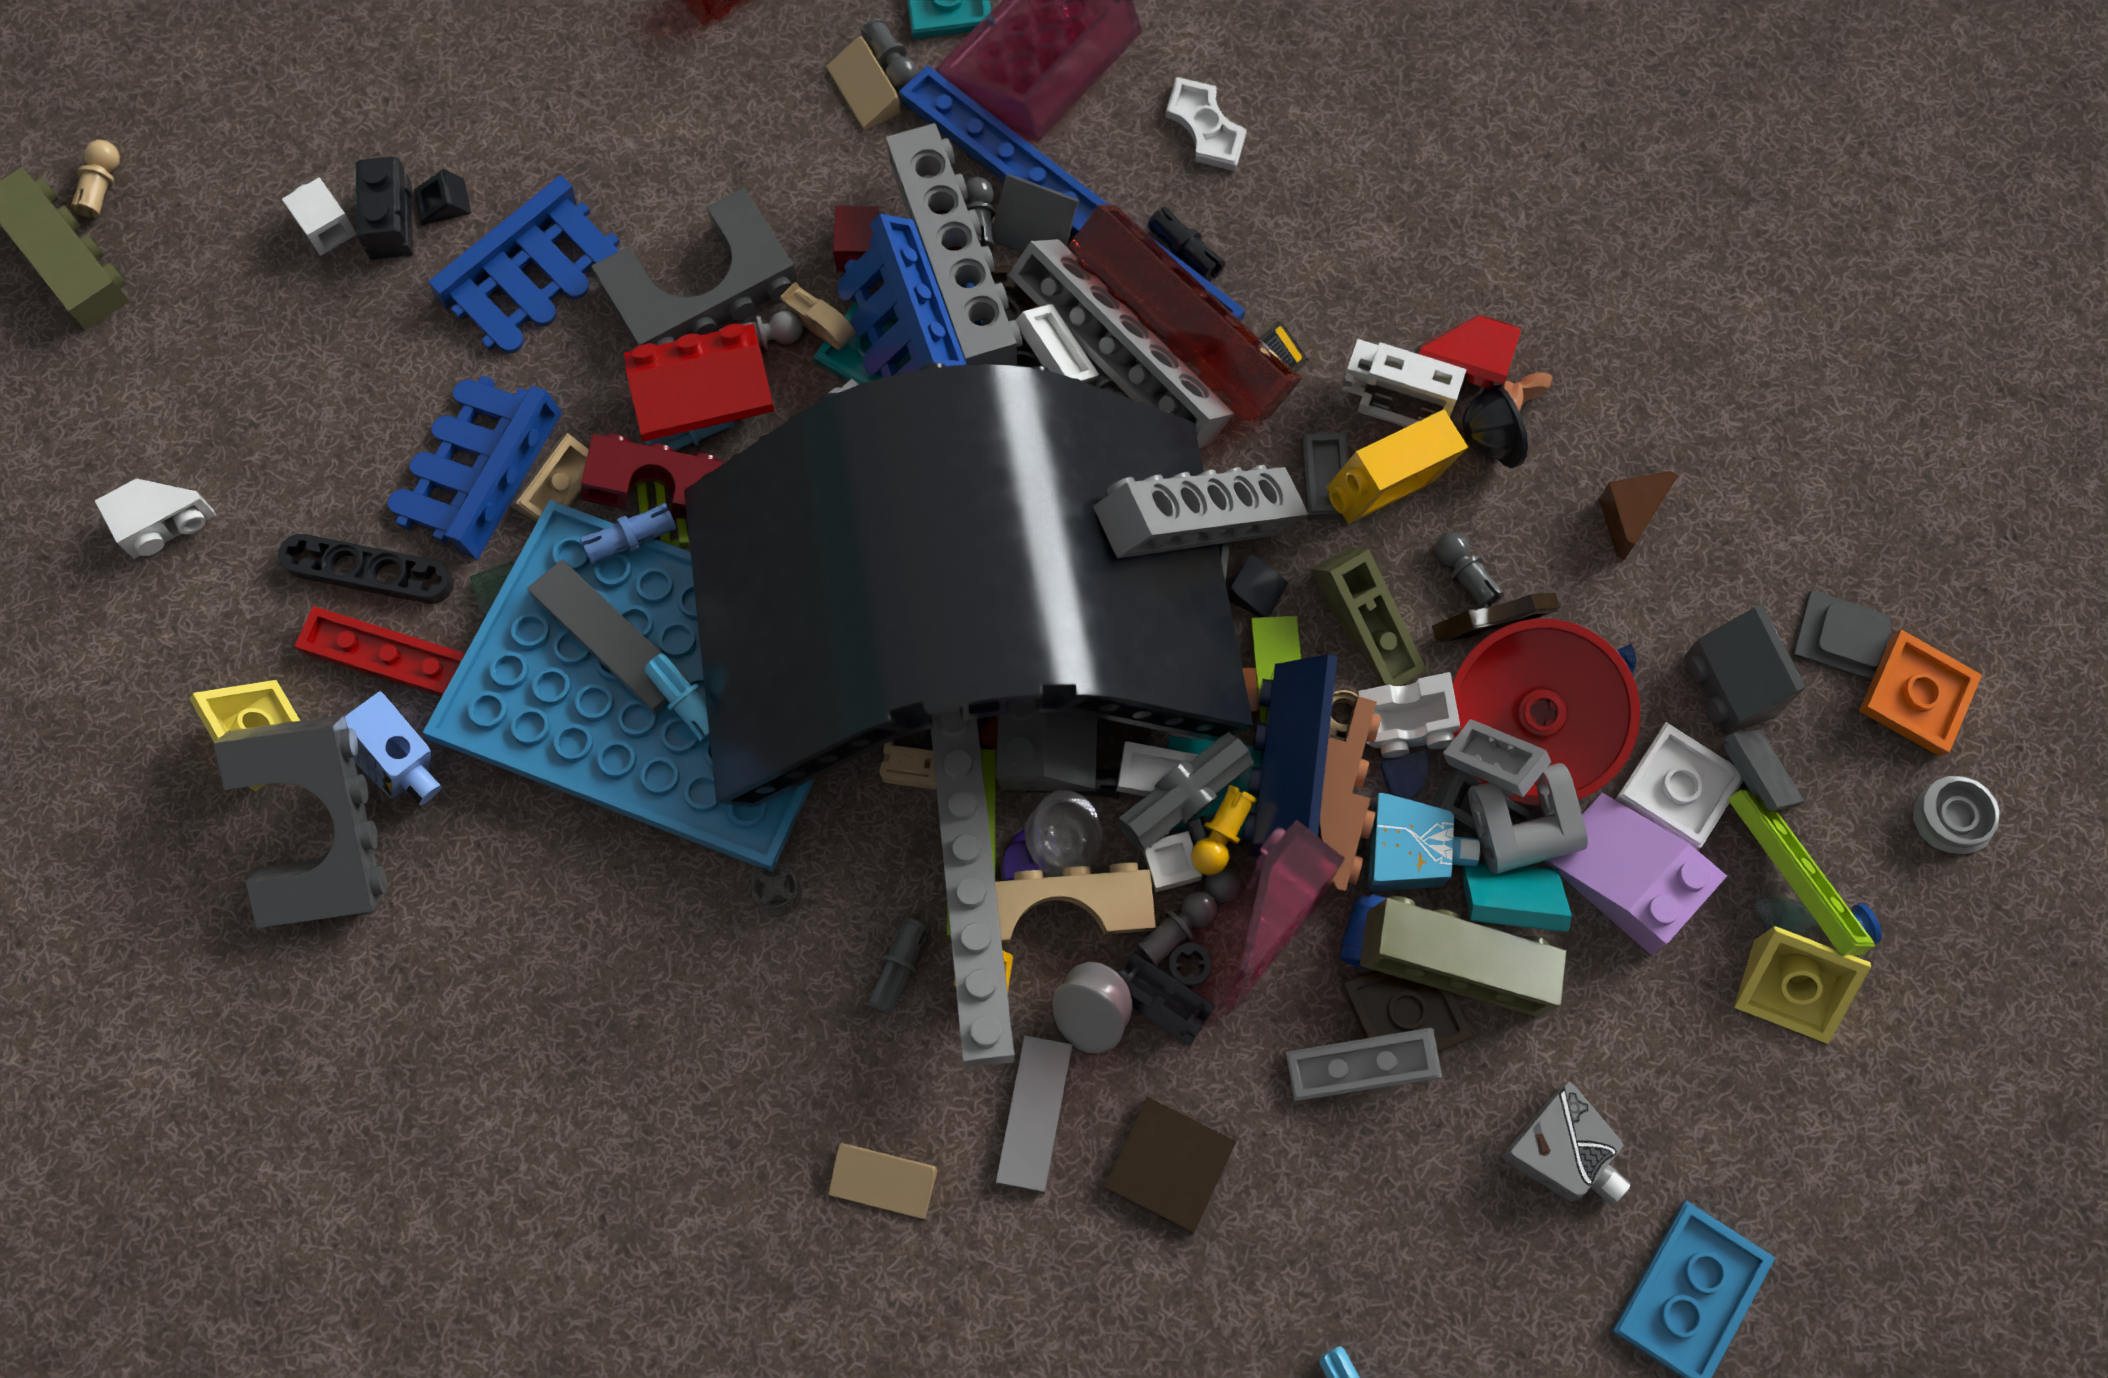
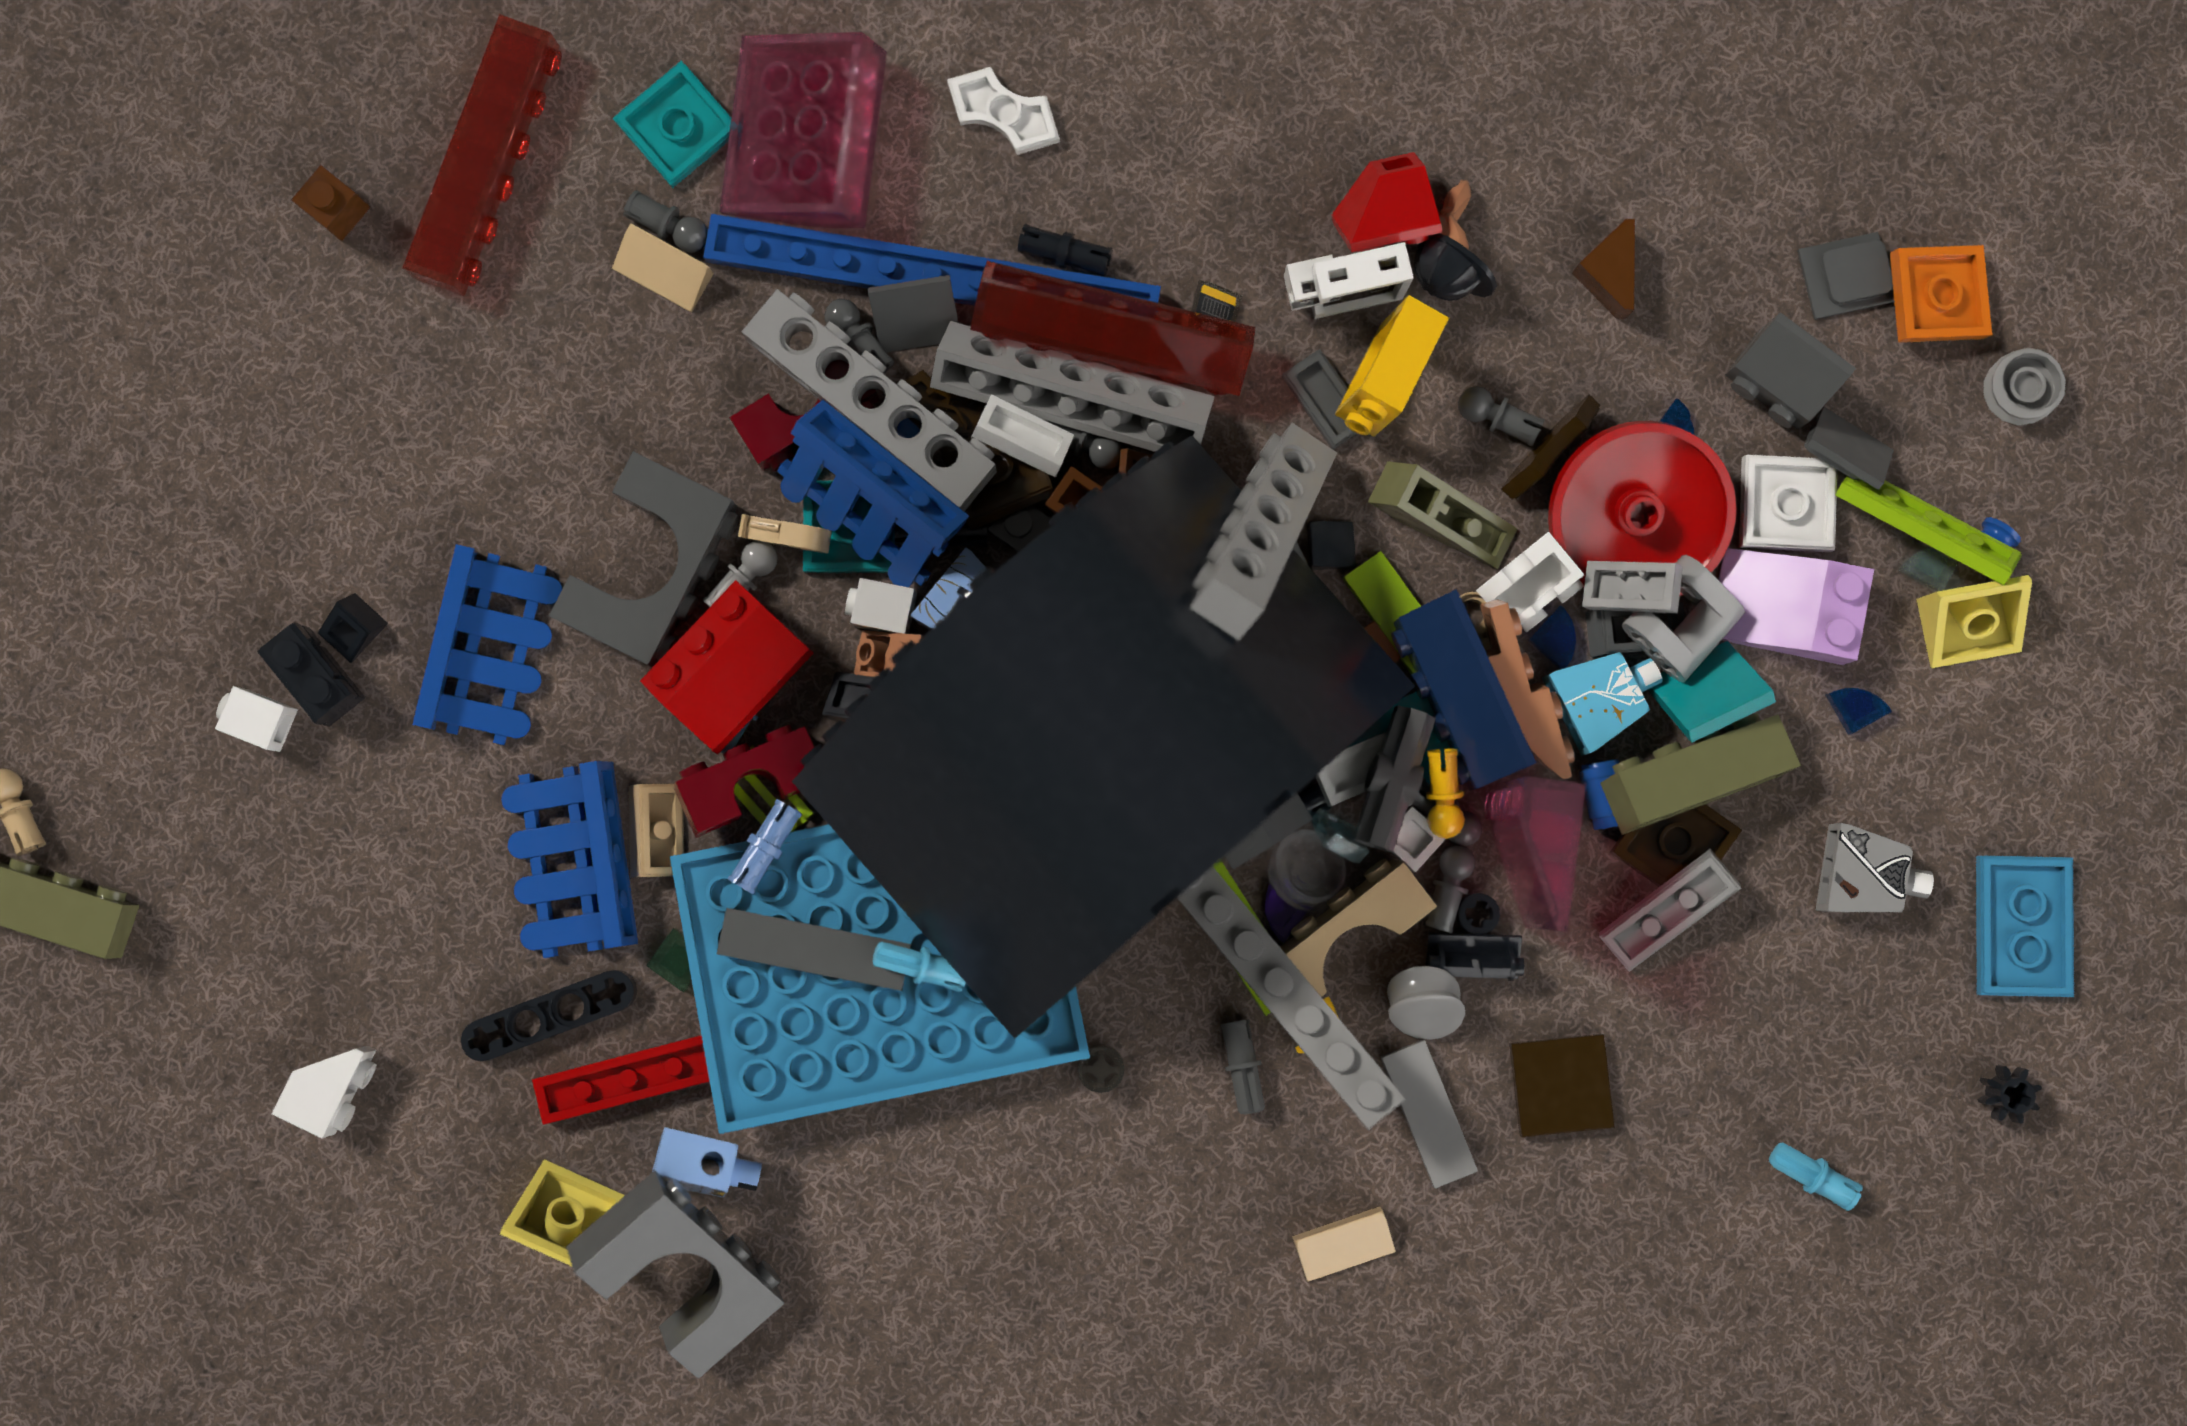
camera: 30 degrees left, 15 degrees up
(1104, 814) = (1338, 835): none -> clear light blue tile
(1644, 998) = (1857, 708): none -> clear blue tile

